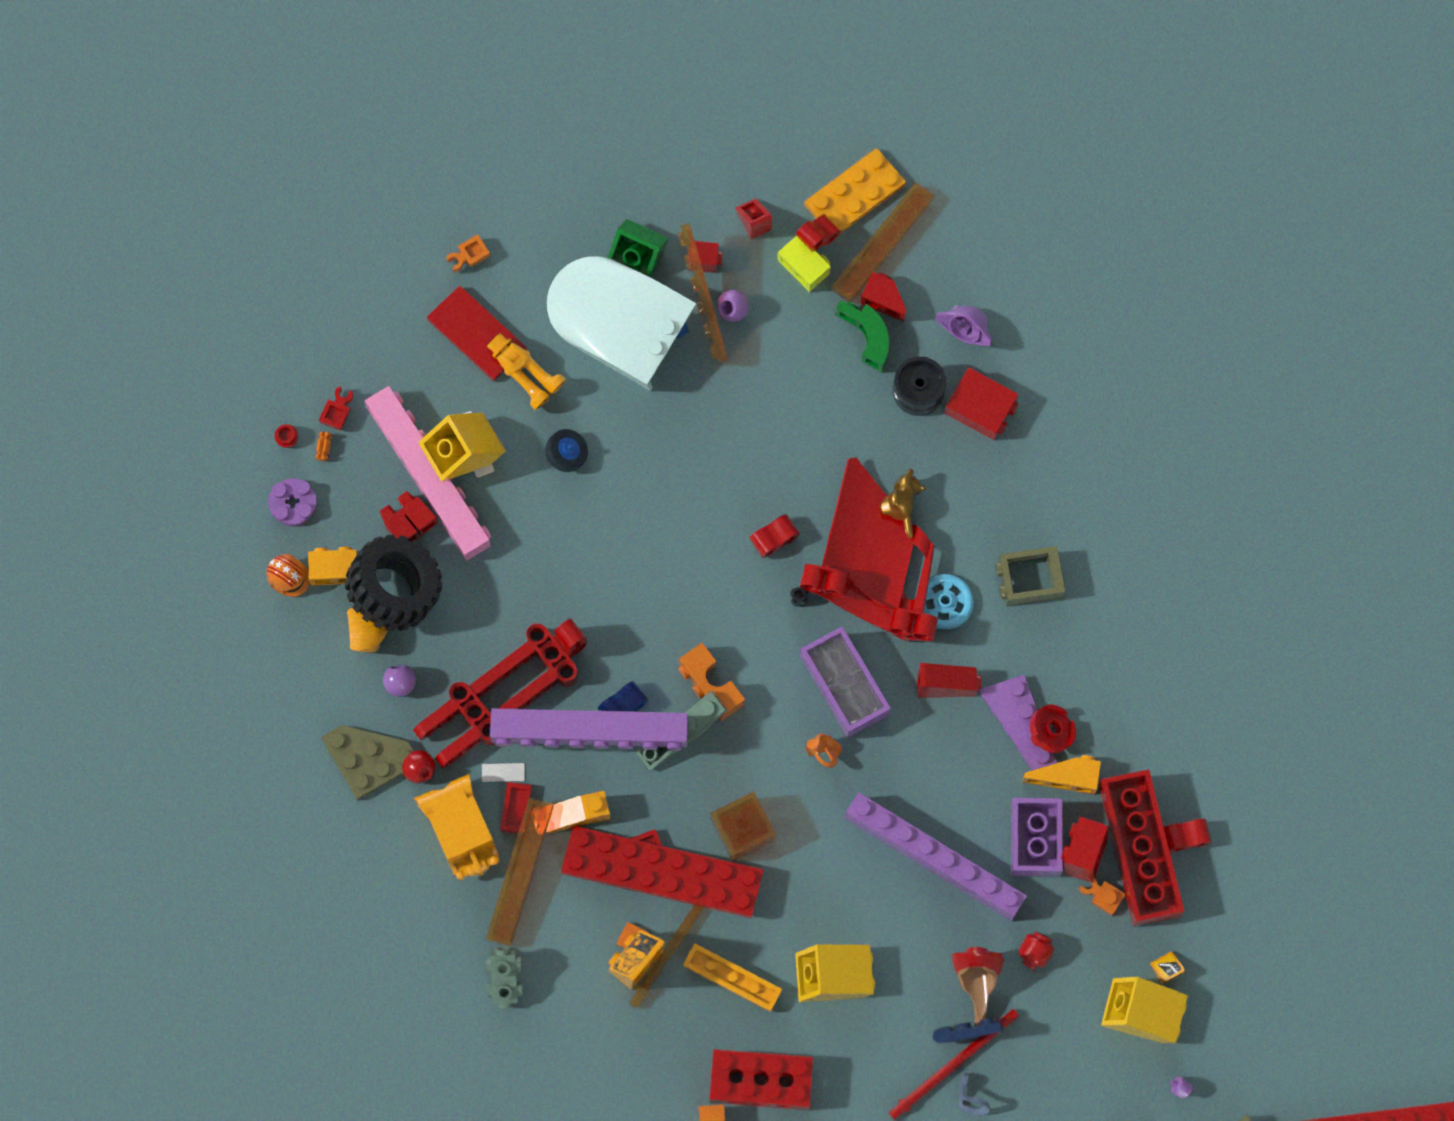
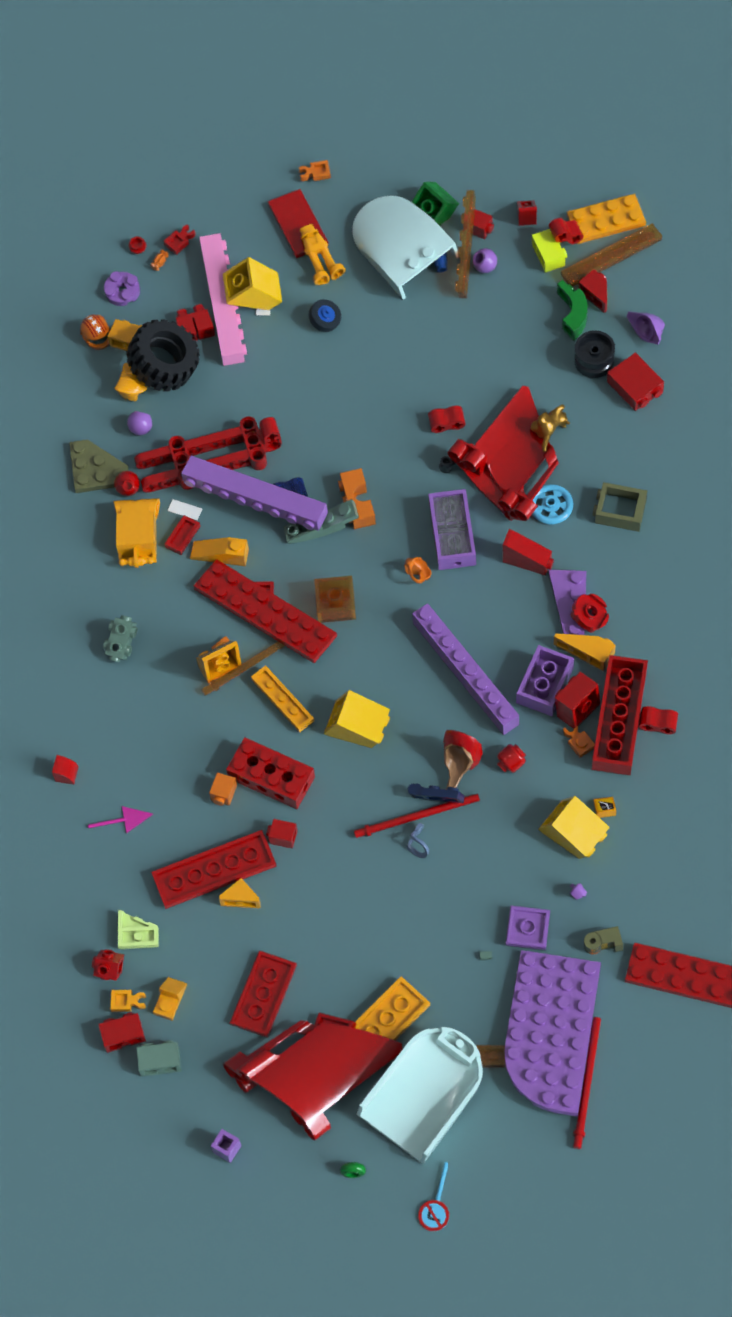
camera: 30 degrees right, 10 degrees down
(520, 872) = (164, 575): clear orange plate -> none

